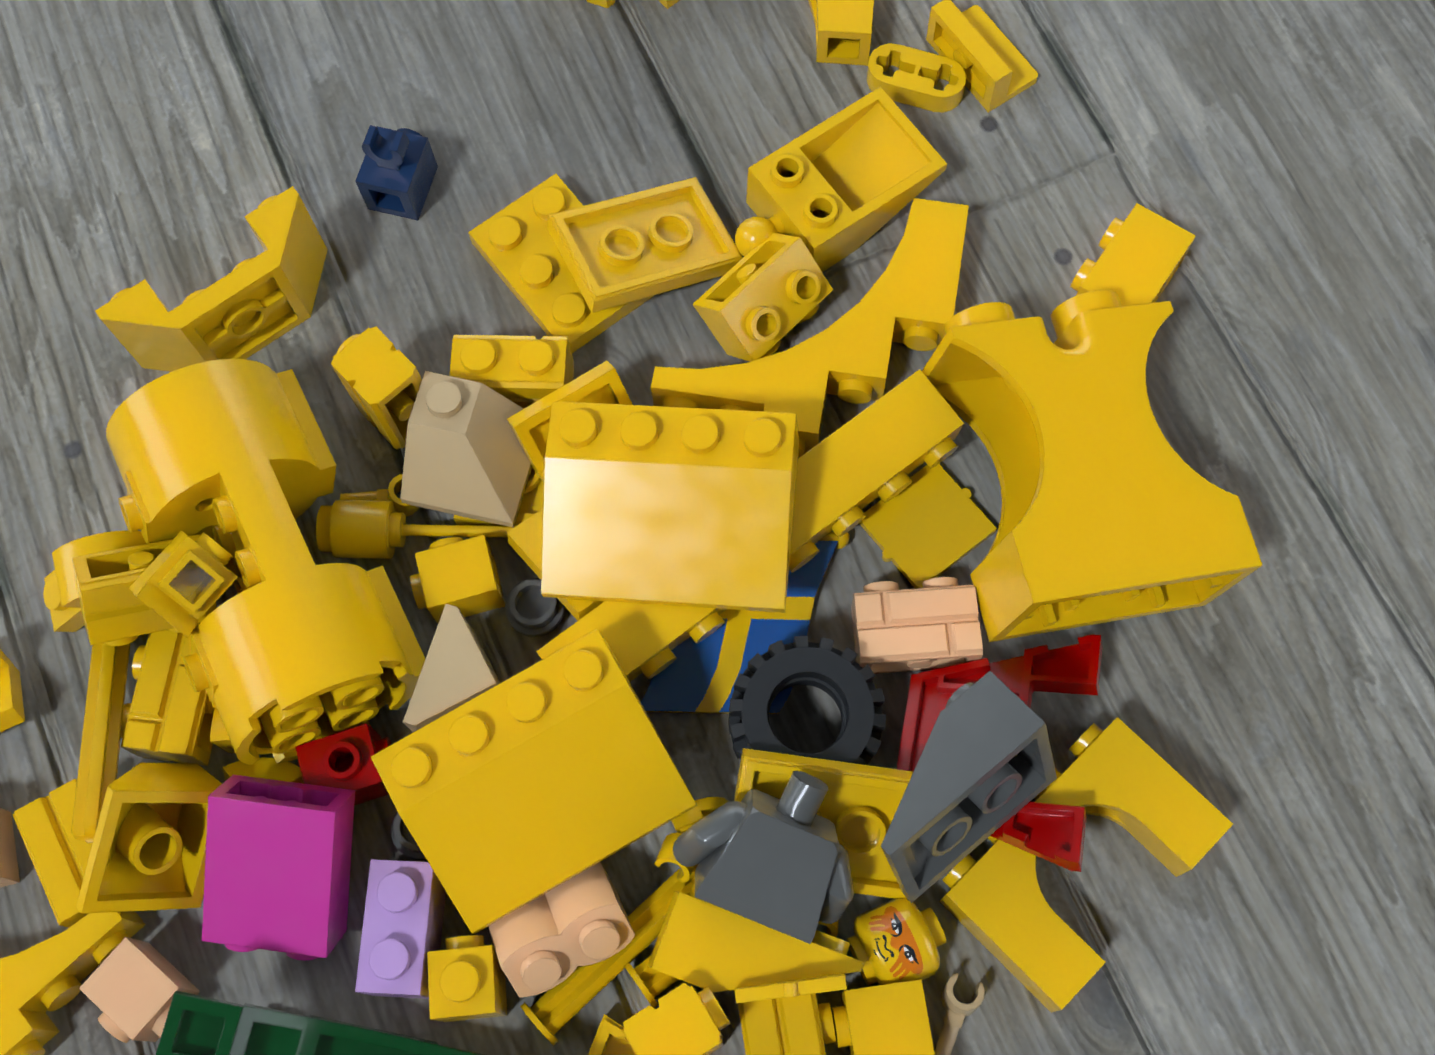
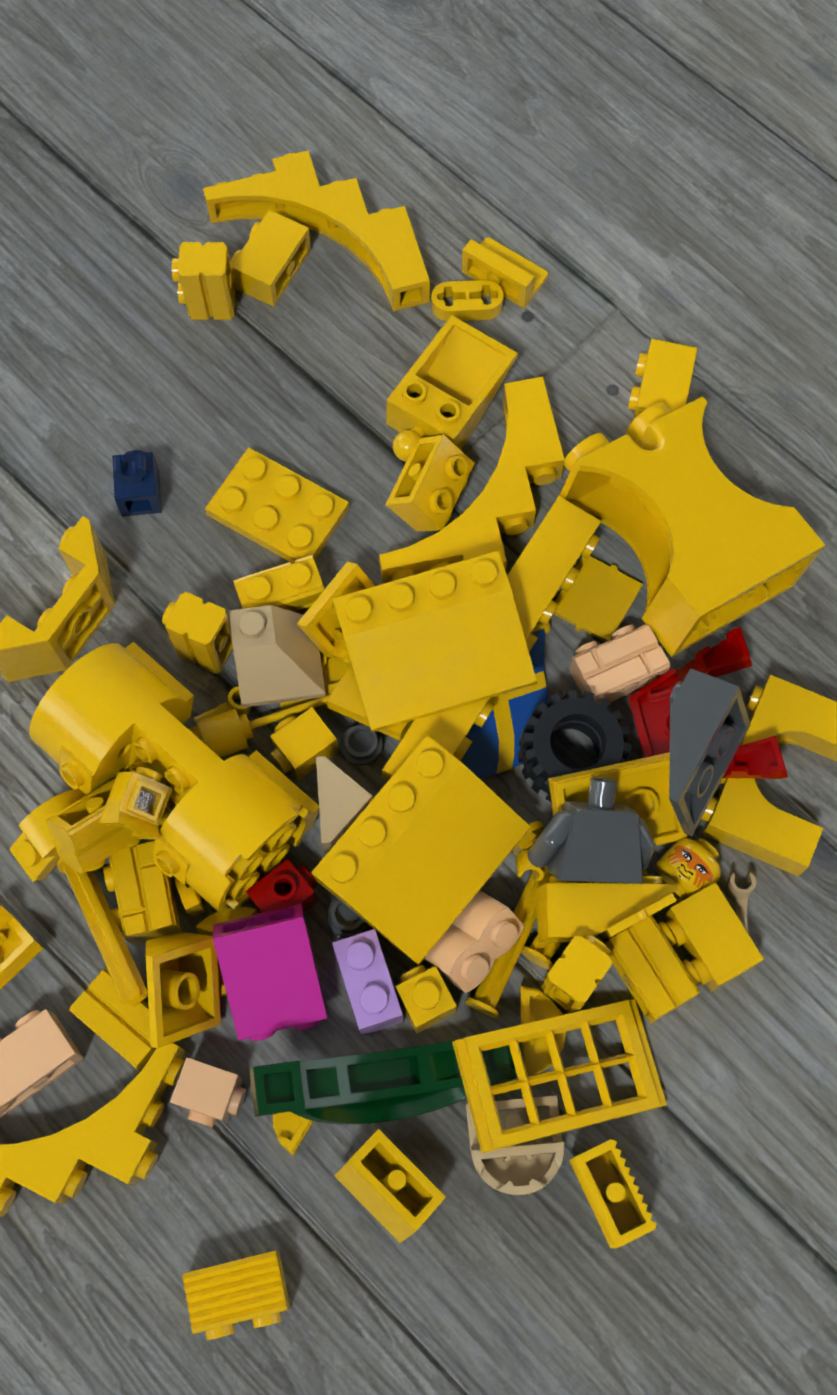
camera: 25 degrees left, 0 degrees up
(643, 243) = (332, 475): yellow tile -> none

